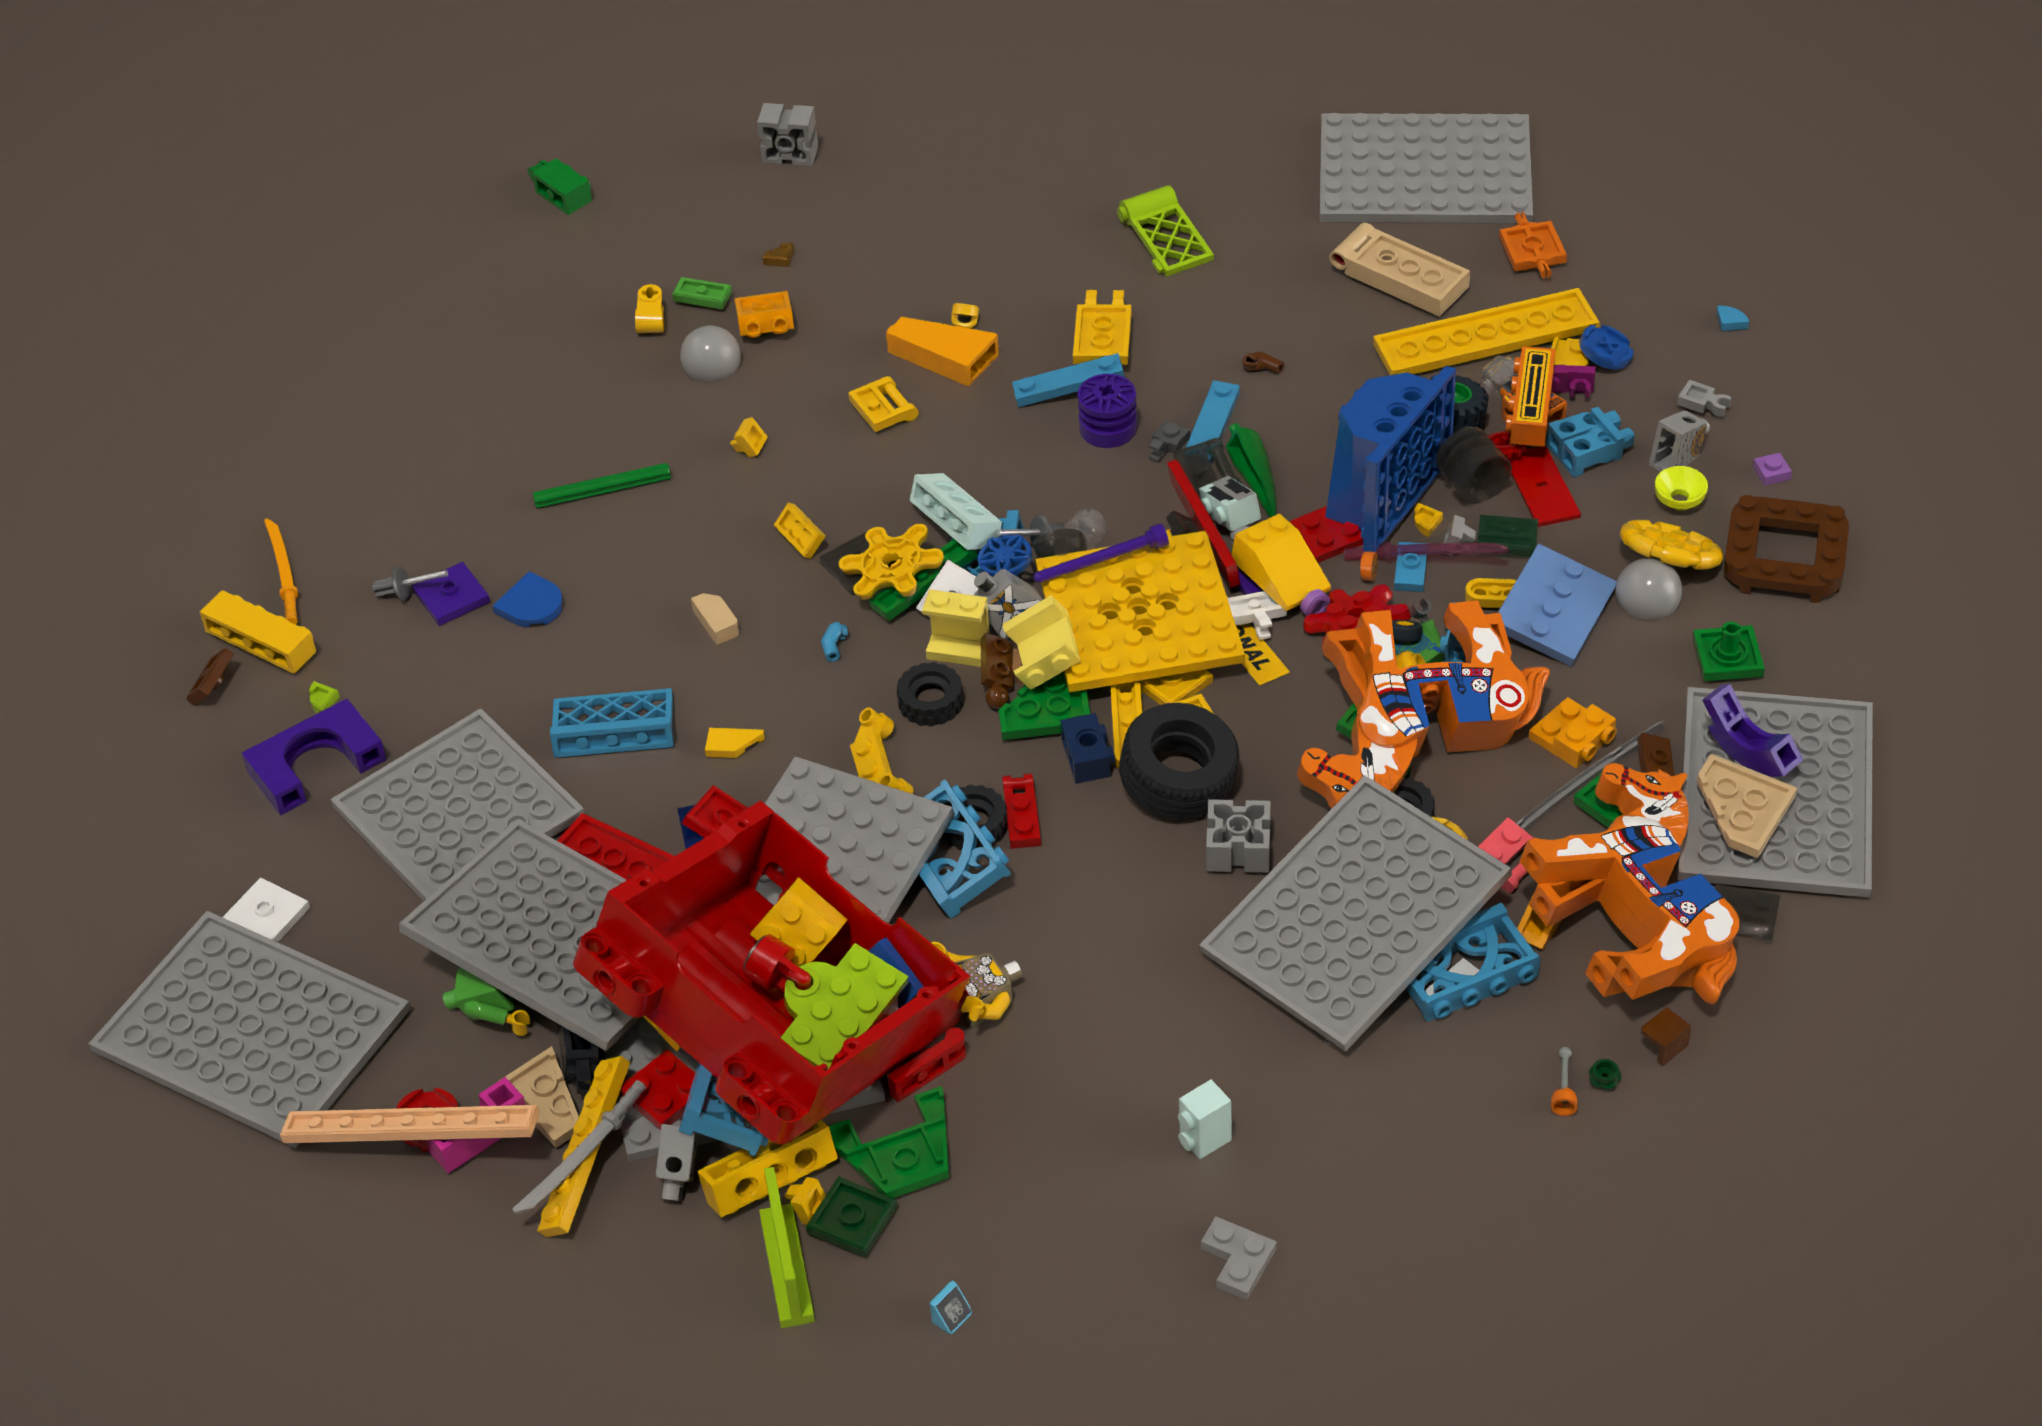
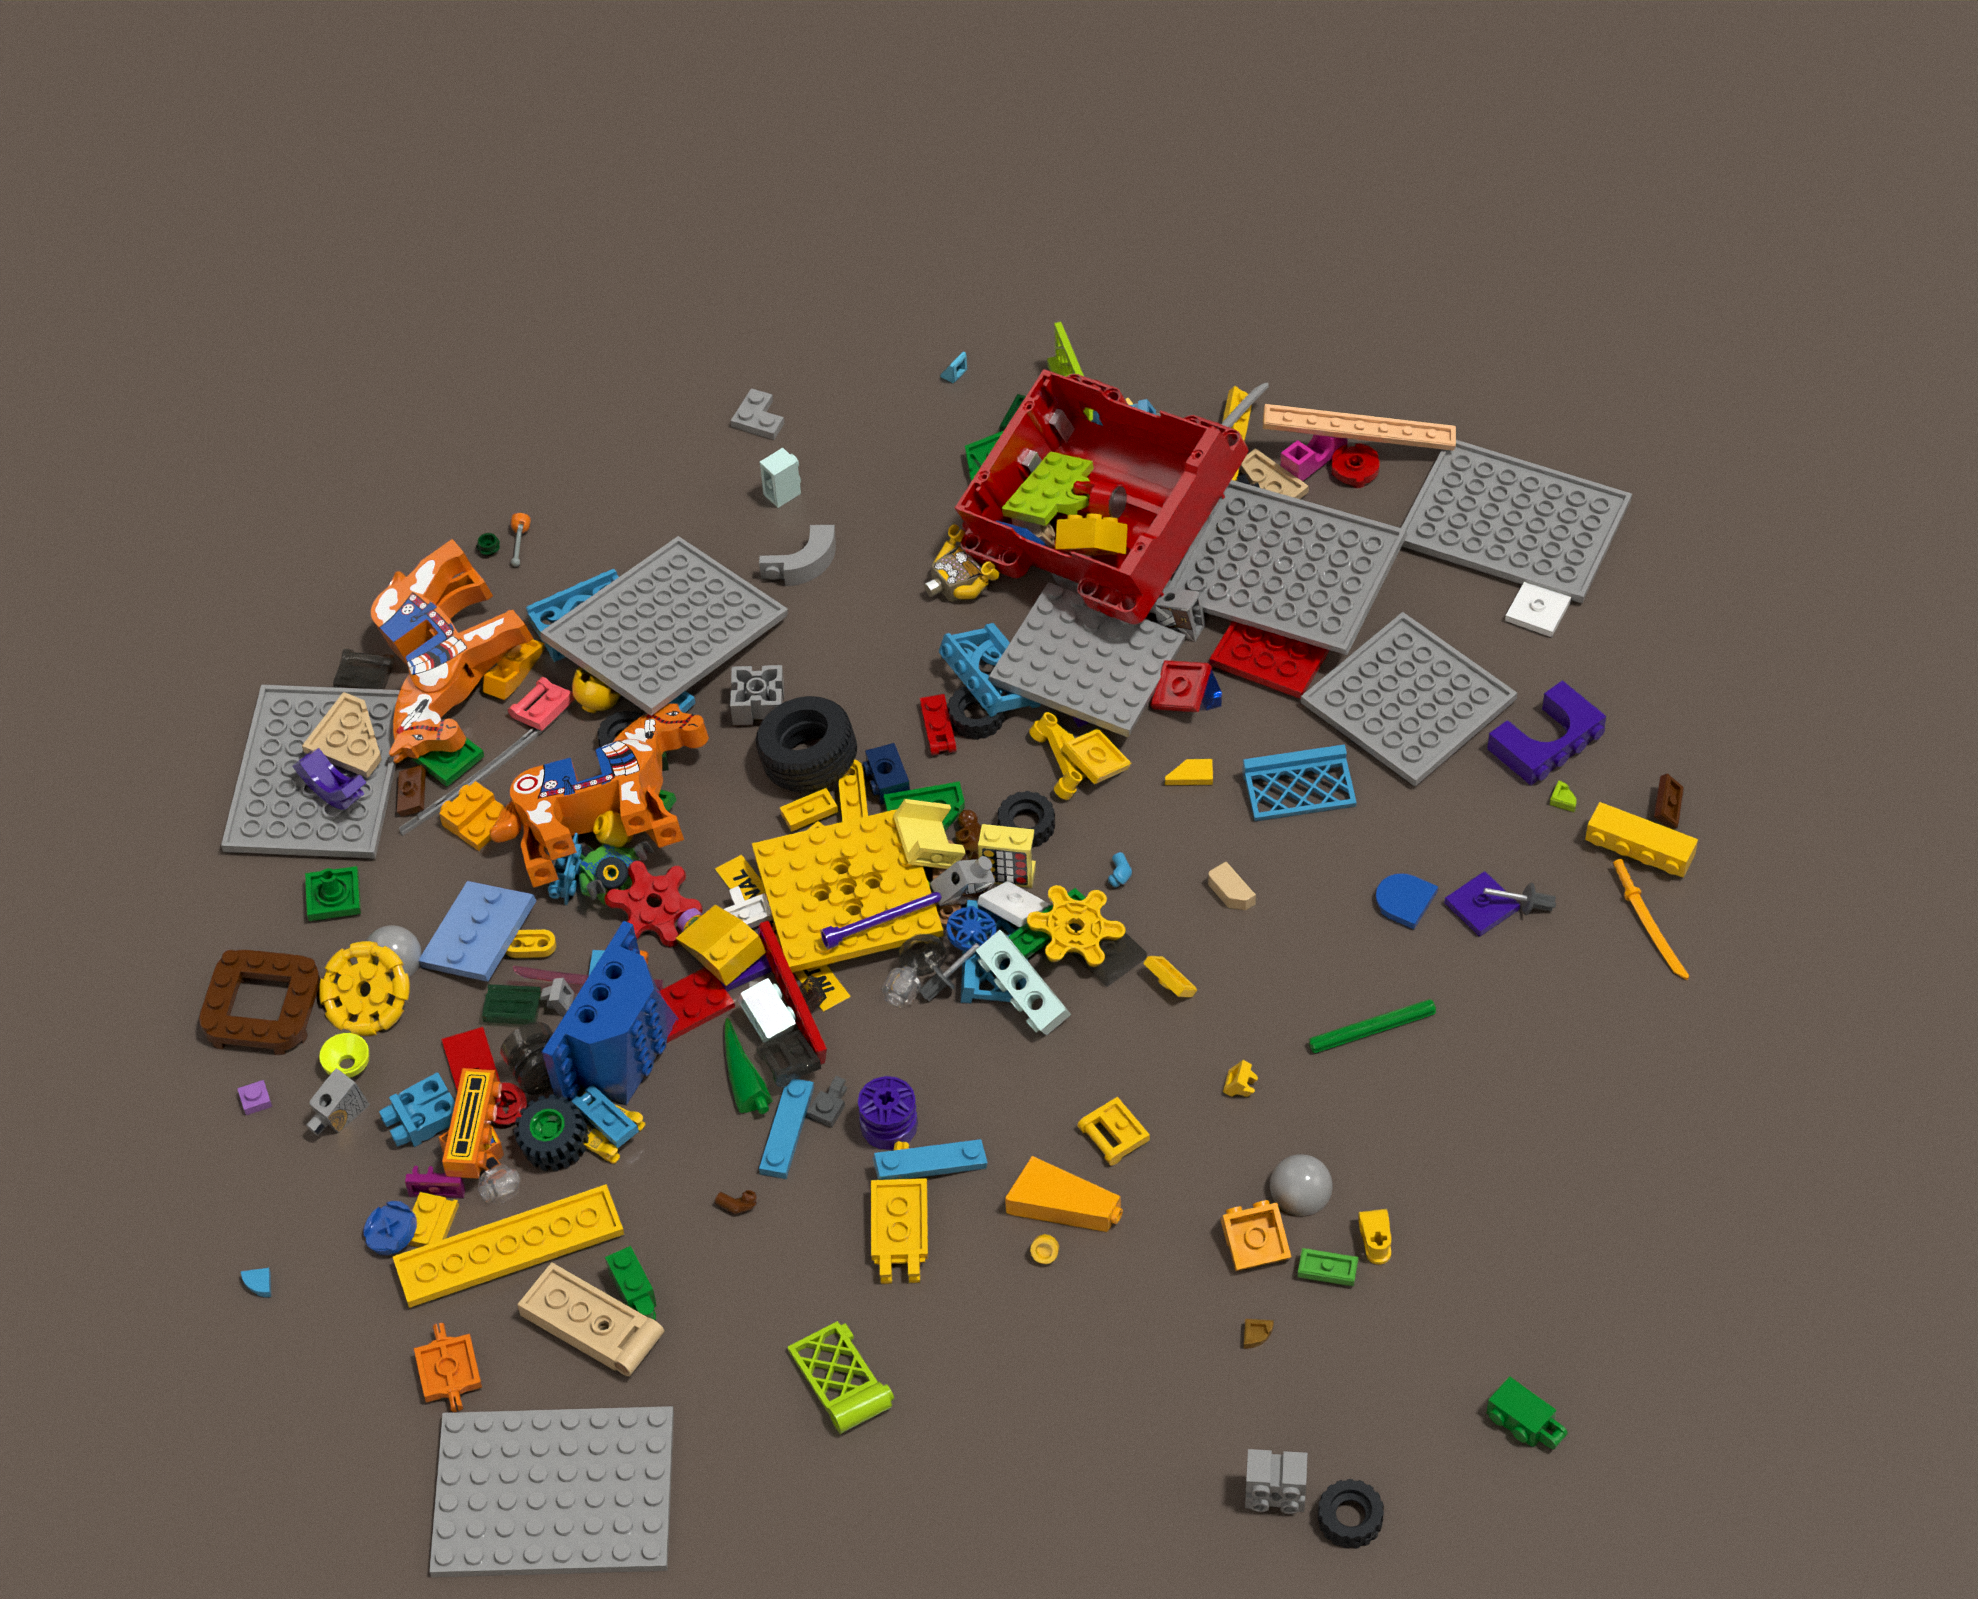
camera: 175 degrees right, 5 degrees up
(729, 143) = (1345, 1535): none -> black tyre
(840, 744) = (1096, 756): none -> yellow tile
(1173, 1015) = (804, 564): none -> light grey arch
(1362, 294) = (631, 1282): none -> green brick
(1703, 397) = (307, 1172): light grey plate -> none

